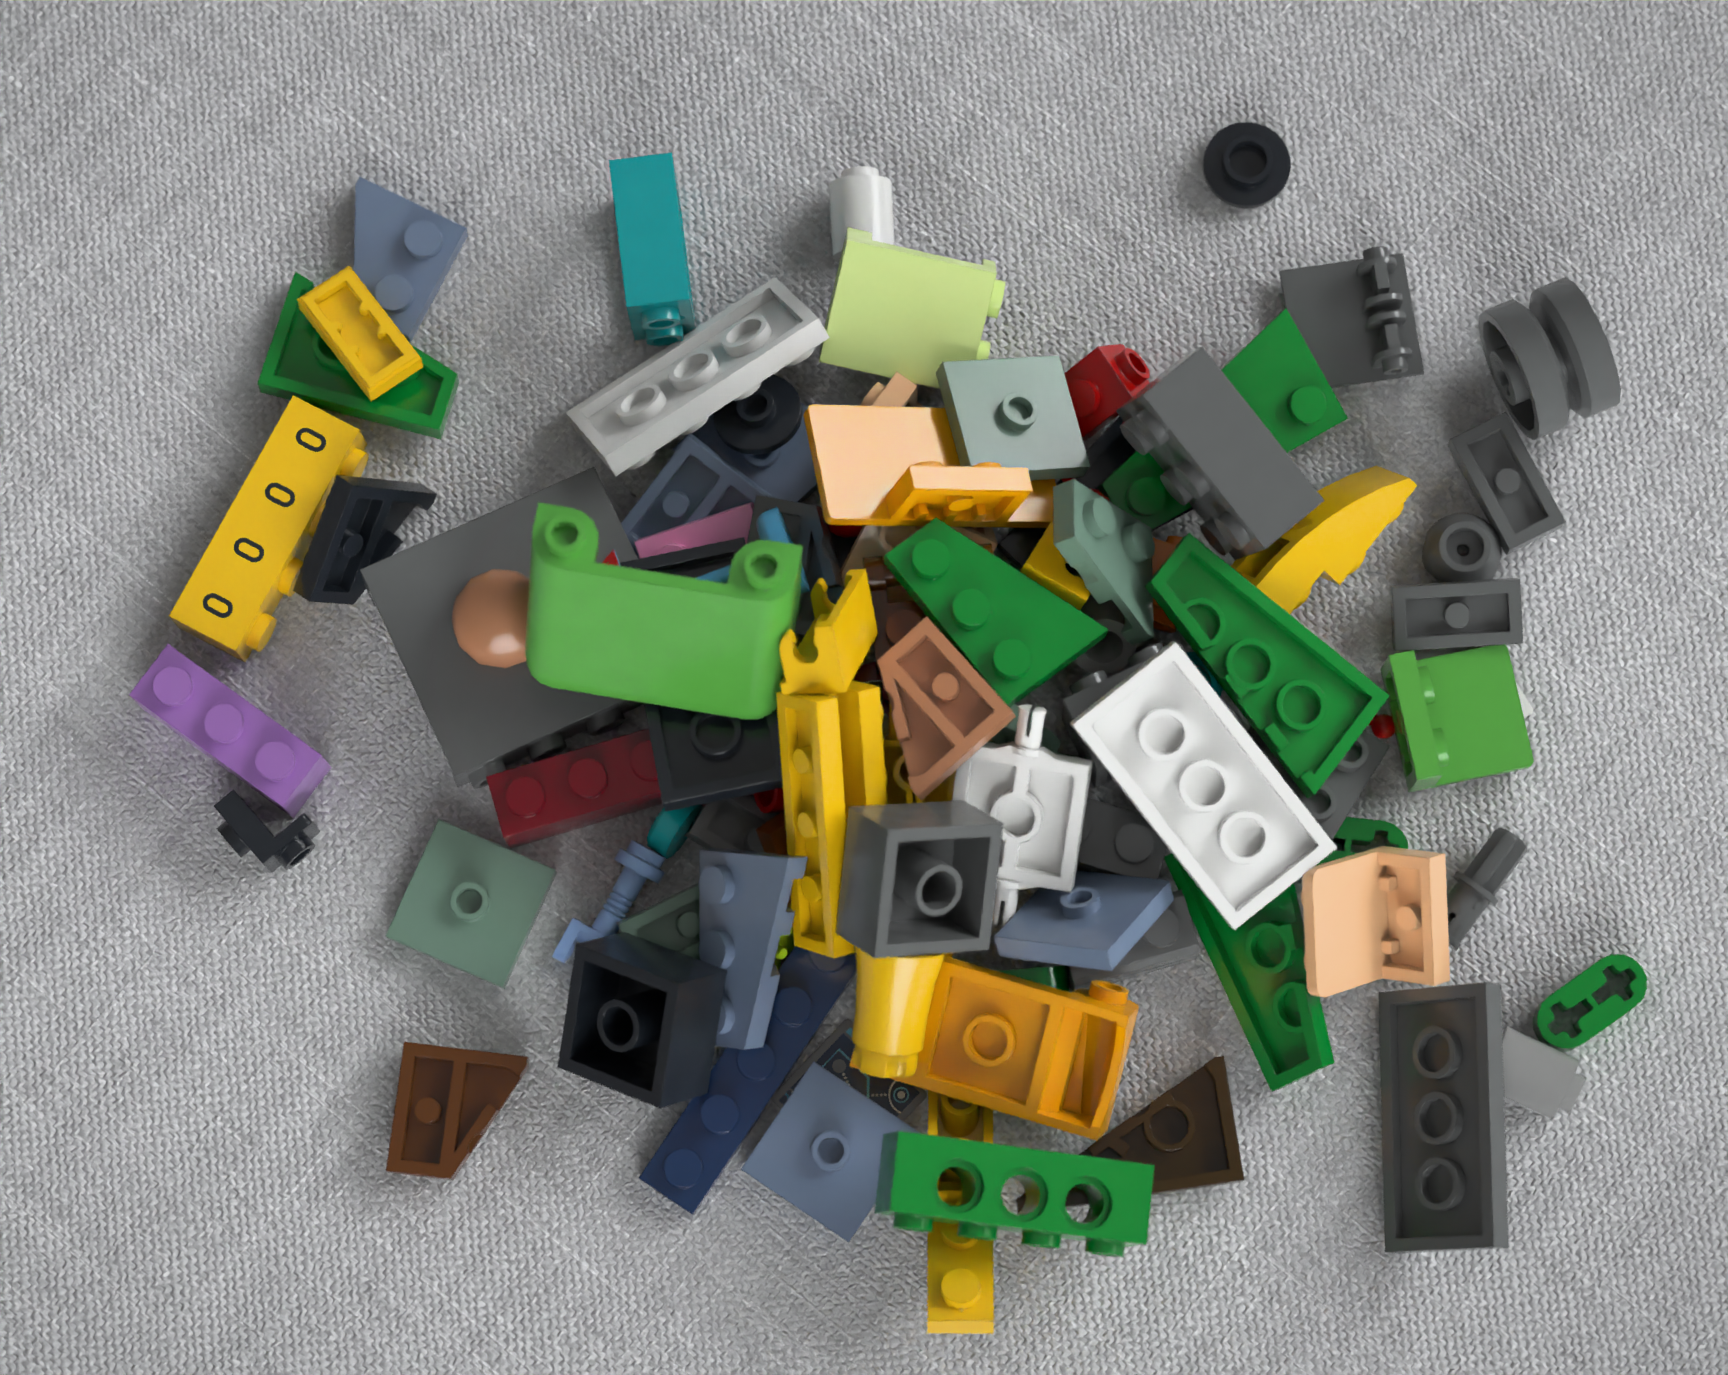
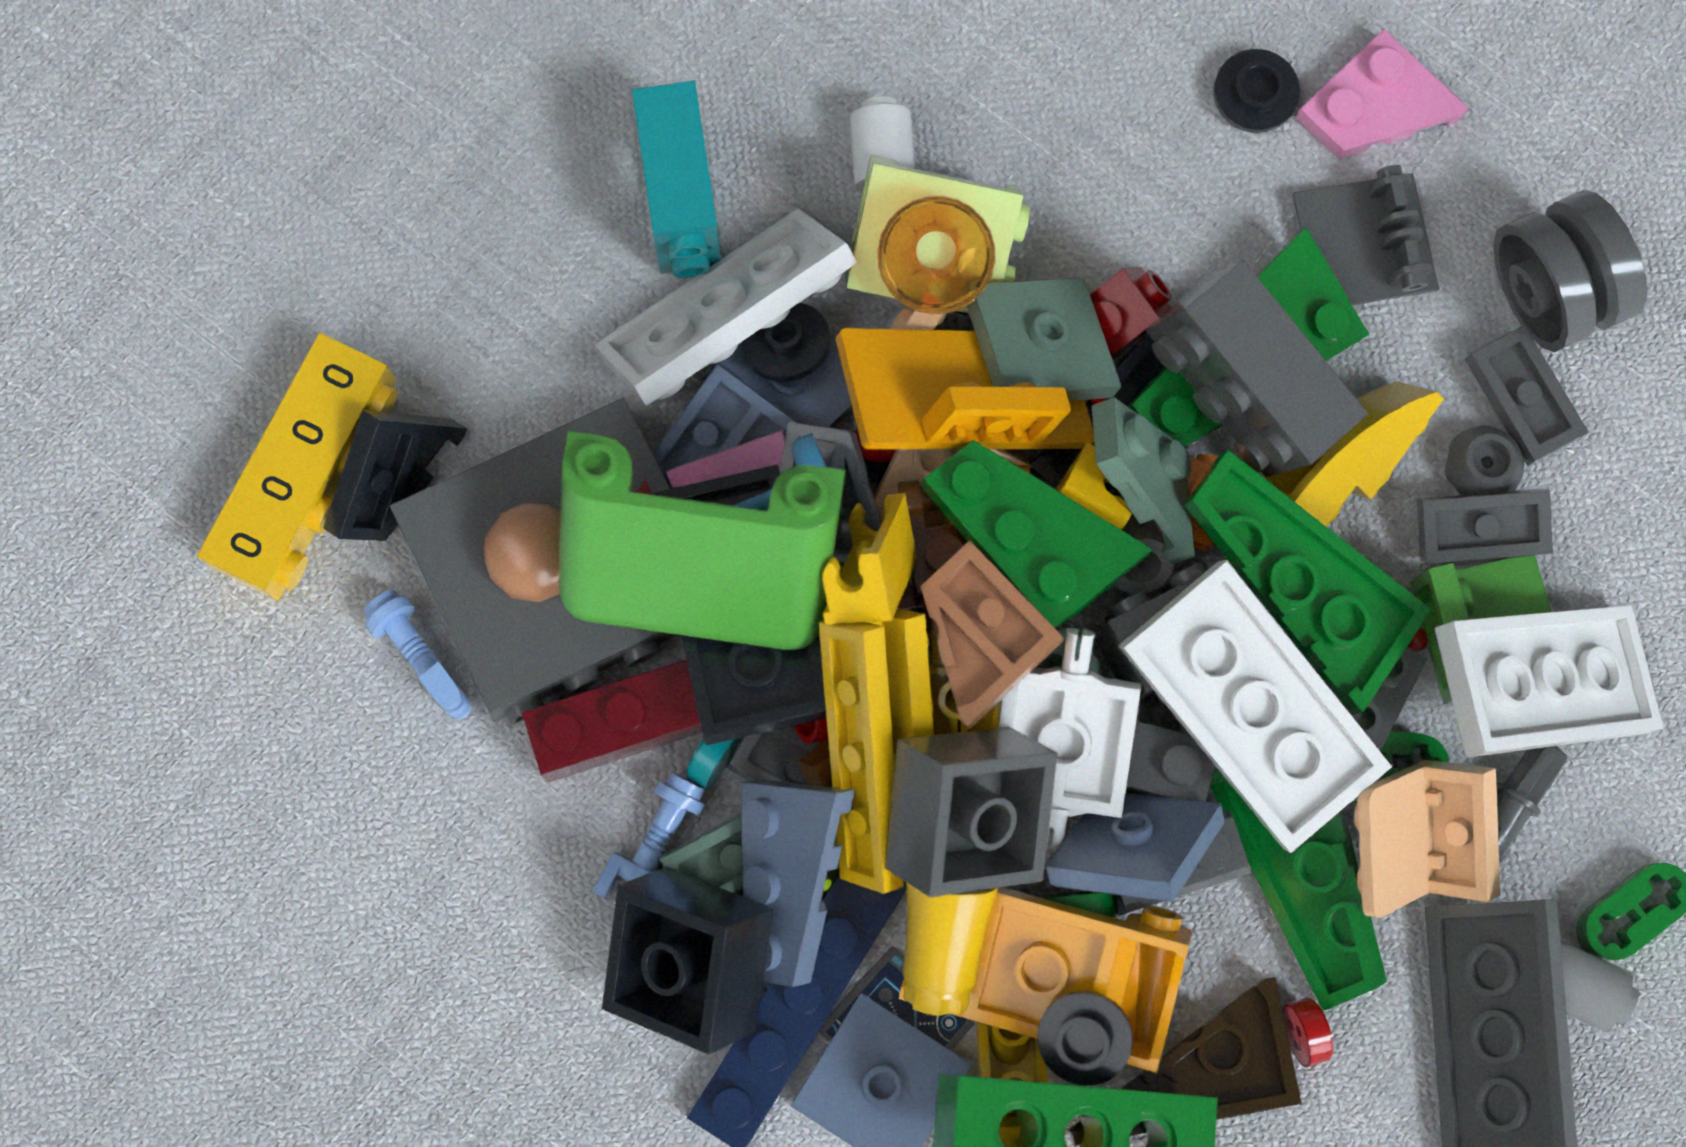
camera: 10 degrees left, 0 degrees up
(230, 730) = (261, 671): medium lavender brick -> none
(247, 832) = (282, 774): black bracket -> none
(306, 368) = (380, 305): green wing -> none
(356, 679) = (389, 616): none -> light blue hinge
(360, 333) = (386, 269): yellow plate -> none
(402, 253) = (425, 197): sand blue wing -> none
(447, 1106) = (488, 1050): reddish brown wing -> none
(471, 904) = (510, 840): sand green plate -> none
(901, 364) = (942, 288): none -> clear orange piece
(1027, 1103) = (1085, 1038): none -> black piece
(1254, 1111) = (1308, 1032): none -> red tile
(1371, 176) = (1378, 99): none -> bright pink wing
(1505, 767) = (1547, 679): none -> white plate

